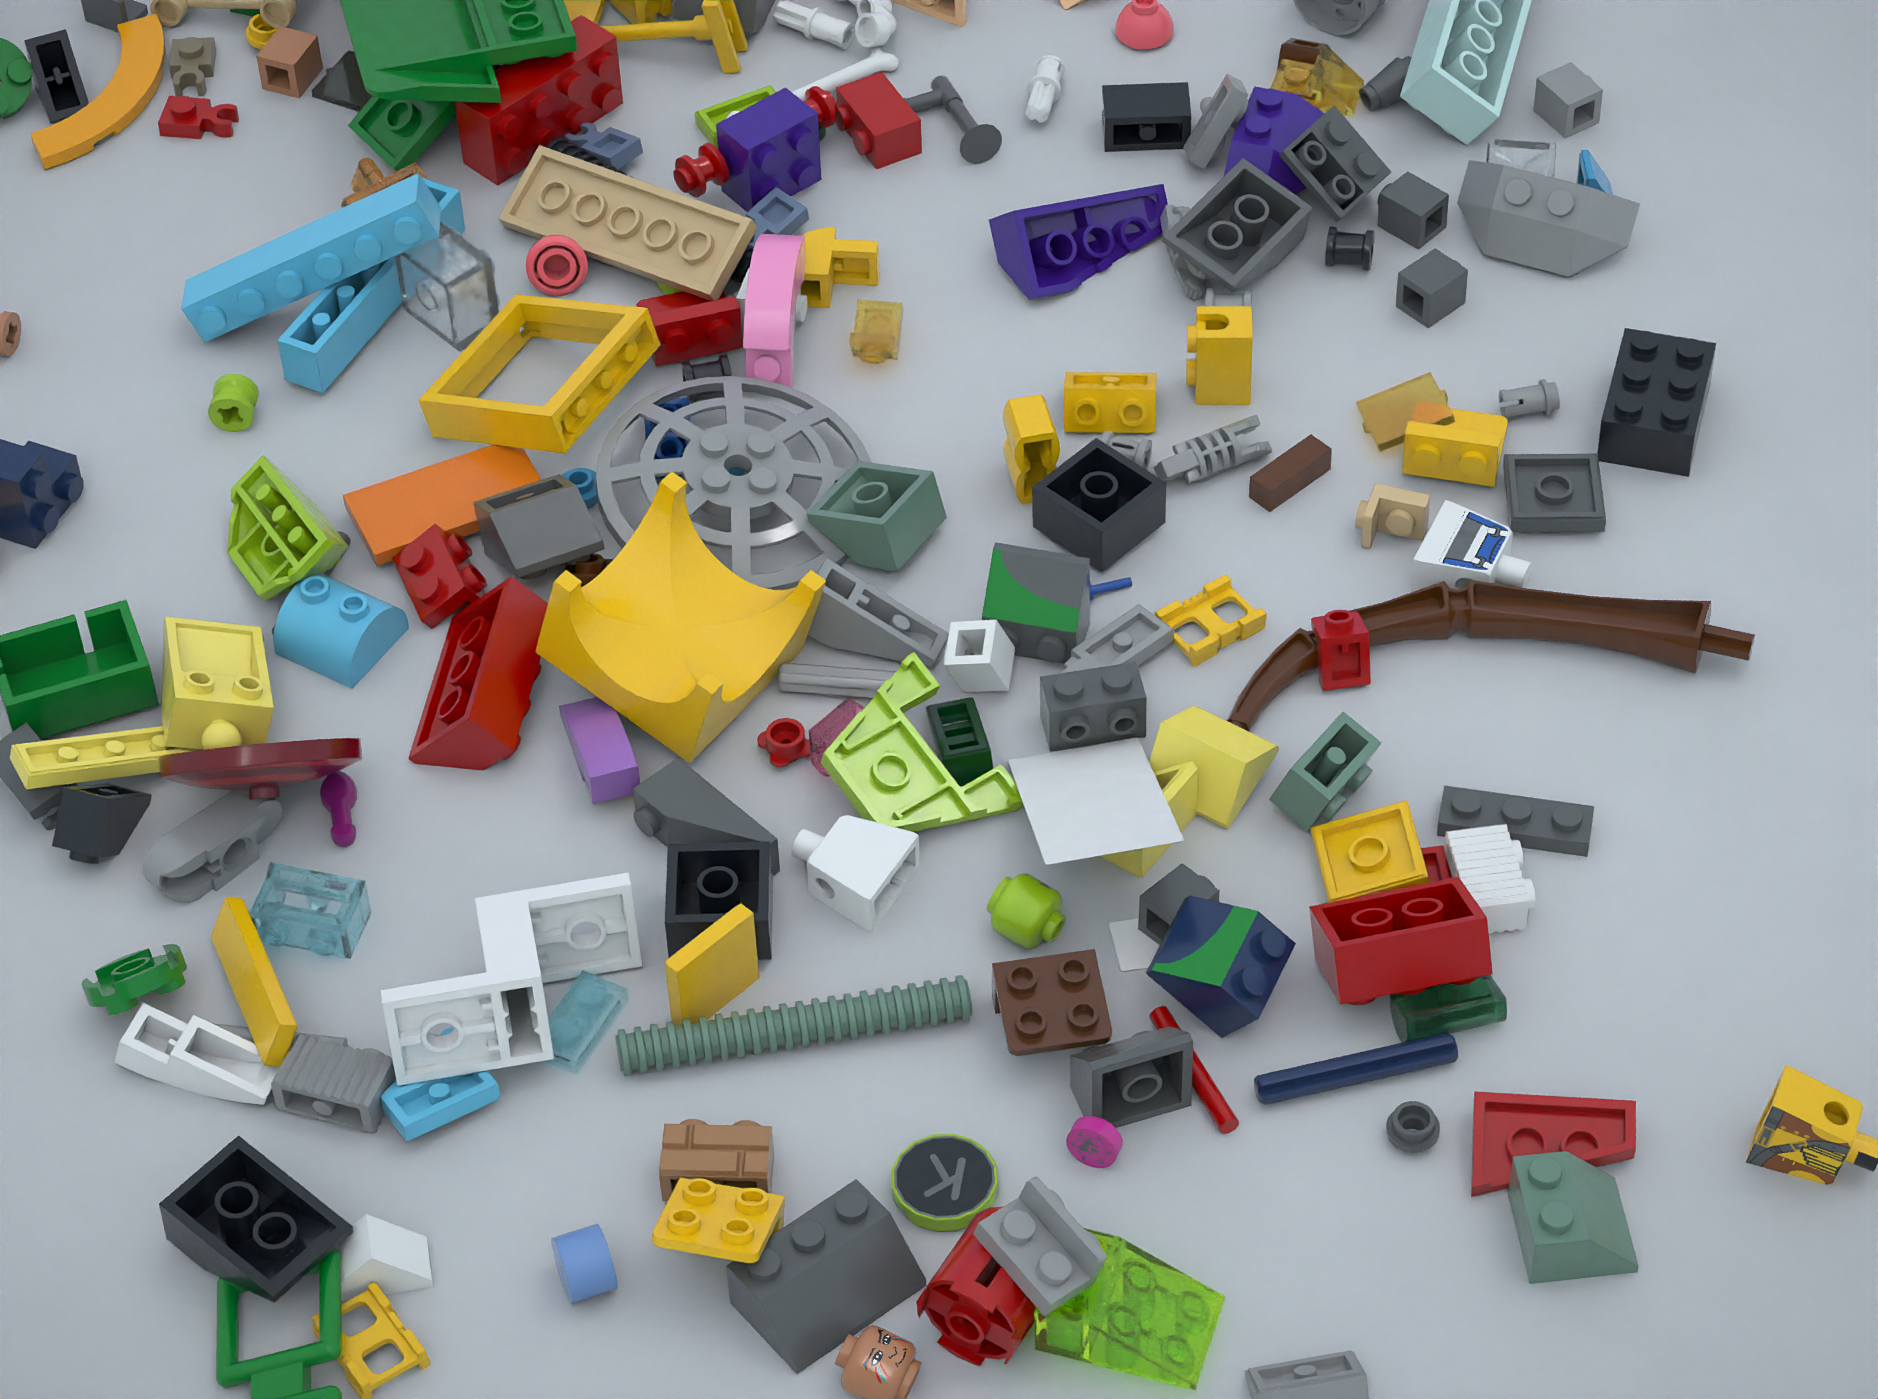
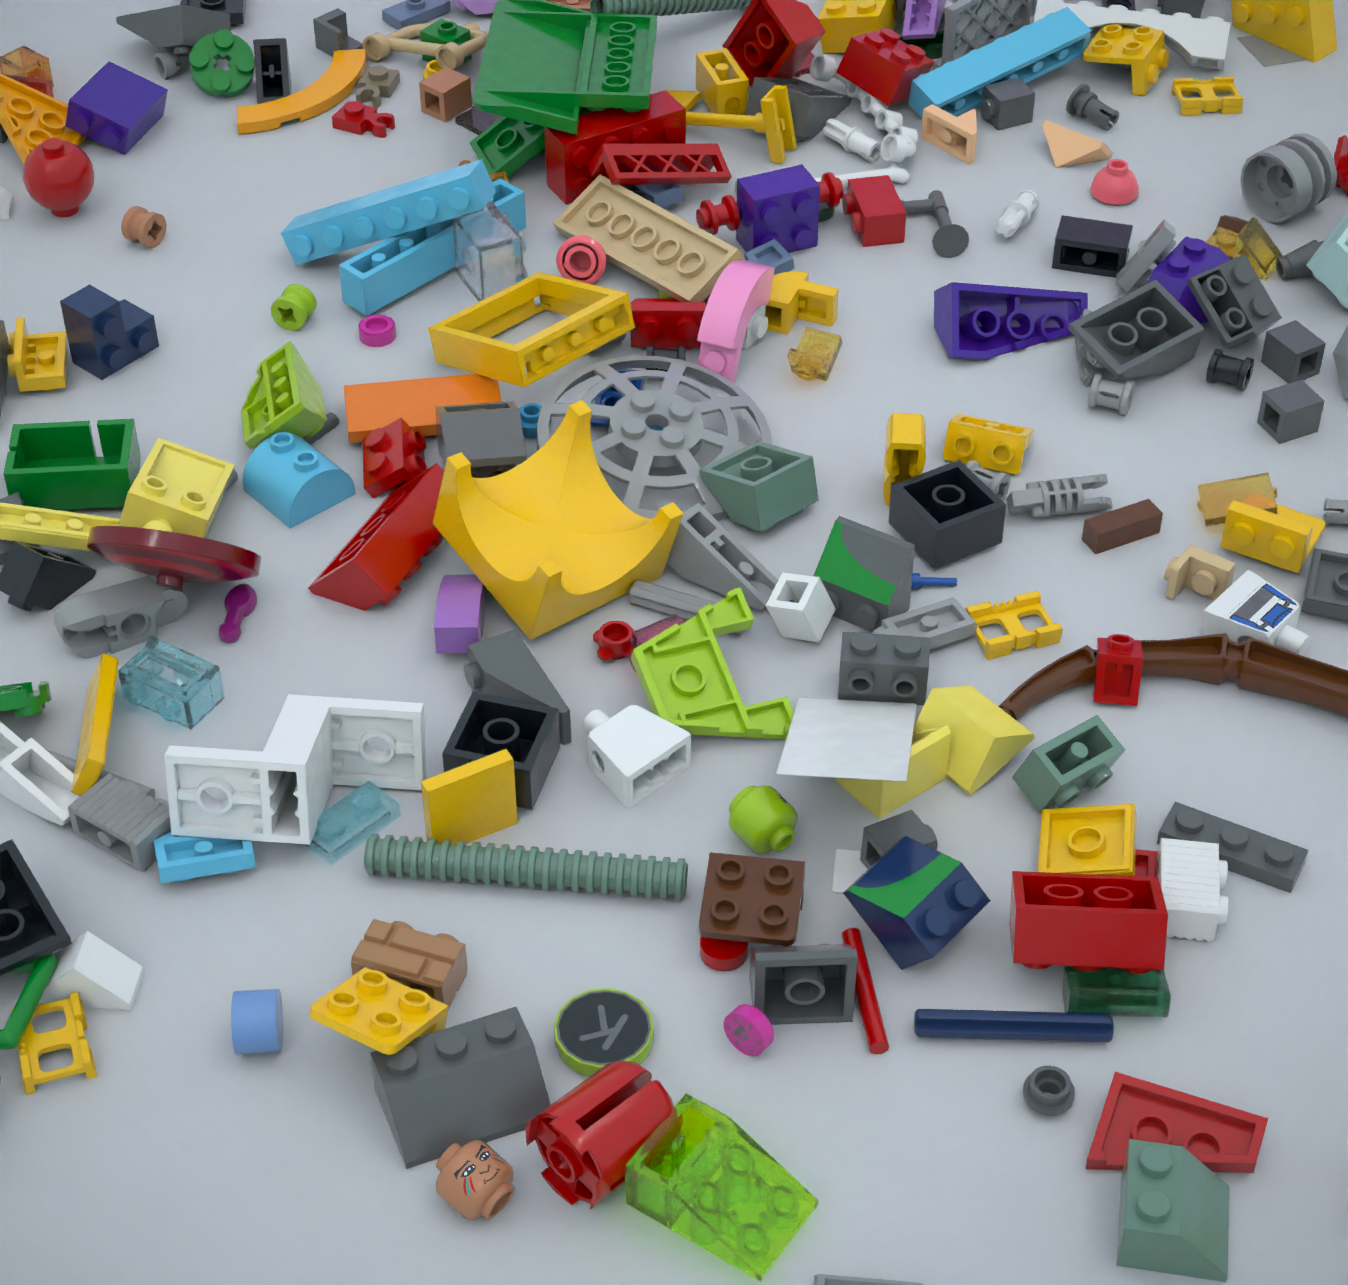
camera: 15 degrees right, 5 degrees down
(344, 410) = (377, 330): none -> dark pink tile
(604, 106) = (660, 164): none -> red fence
(960, 745) = (762, 670): dark green slope -> none
(1034, 1068) = (723, 954): none -> red tile
(1042, 1247) = (647, 1107): light grey bracket -> none
(1222, 355) = (1090, 422): yellow brick -> none

